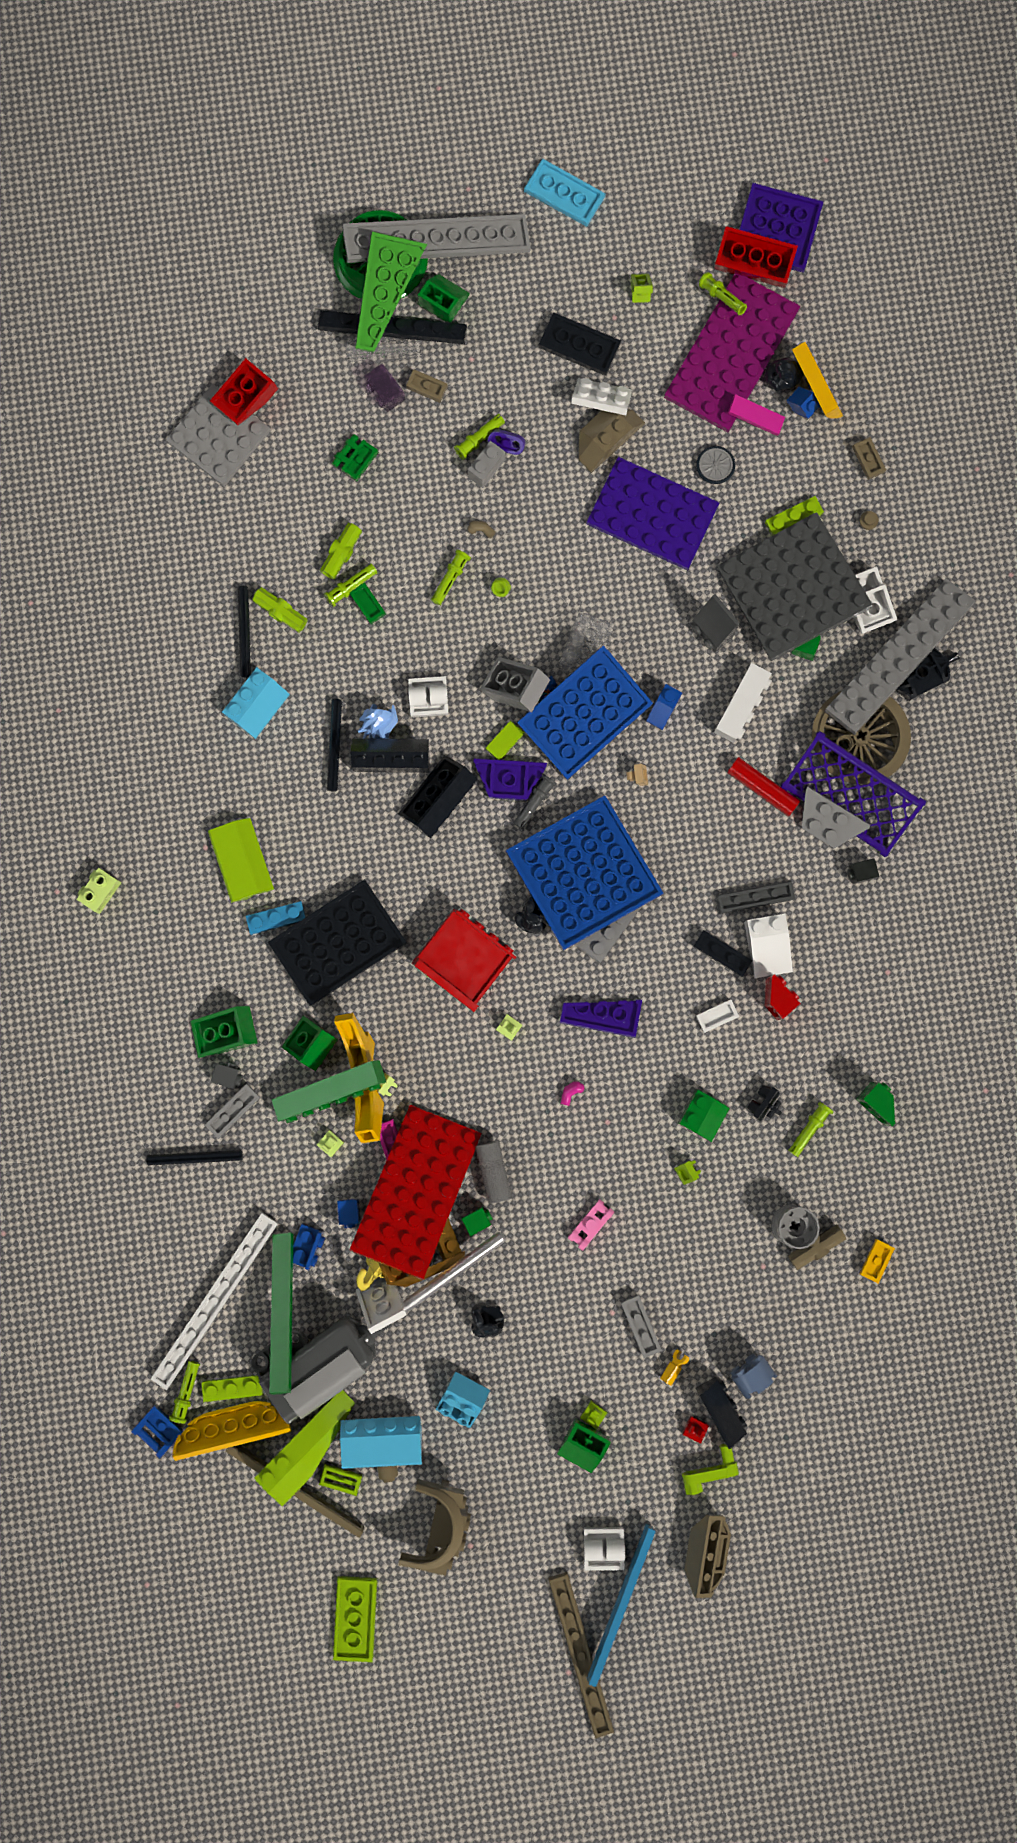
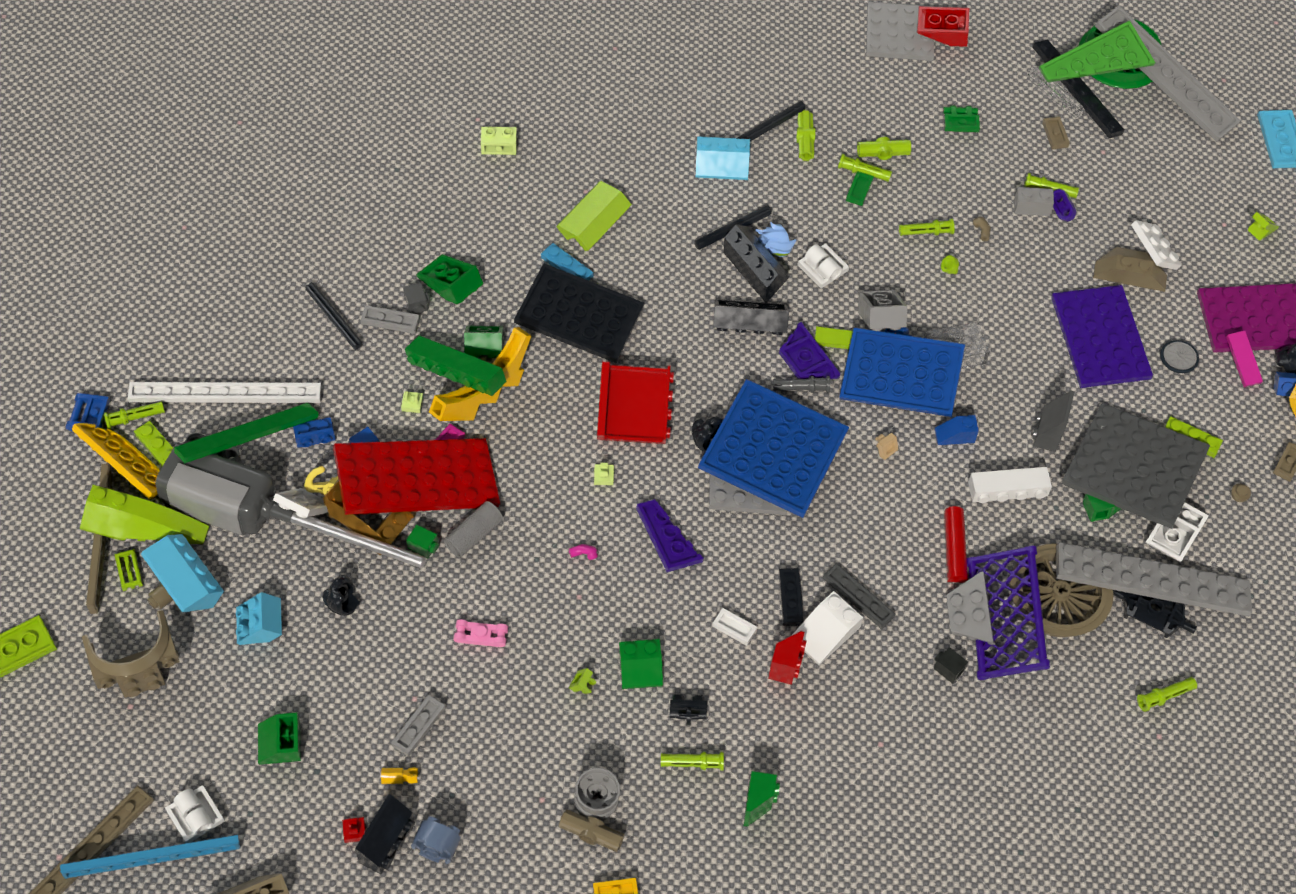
camera: 50 degrees right, 25 degrees down
(384, 387) = (1029, 107): clear purple brick -> none
(384, 1087) = (489, 409): yellowish green tile -> none
(442, 297) = (1128, 104): green slope -> none
(579, 344) = (1181, 211): black plate -> none
(593, 1414) = (312, 735): lime tile -> none
(694, 1478) = (335, 877): lime beam -> none
(993, 730) = (1160, 696): none -> lime pin

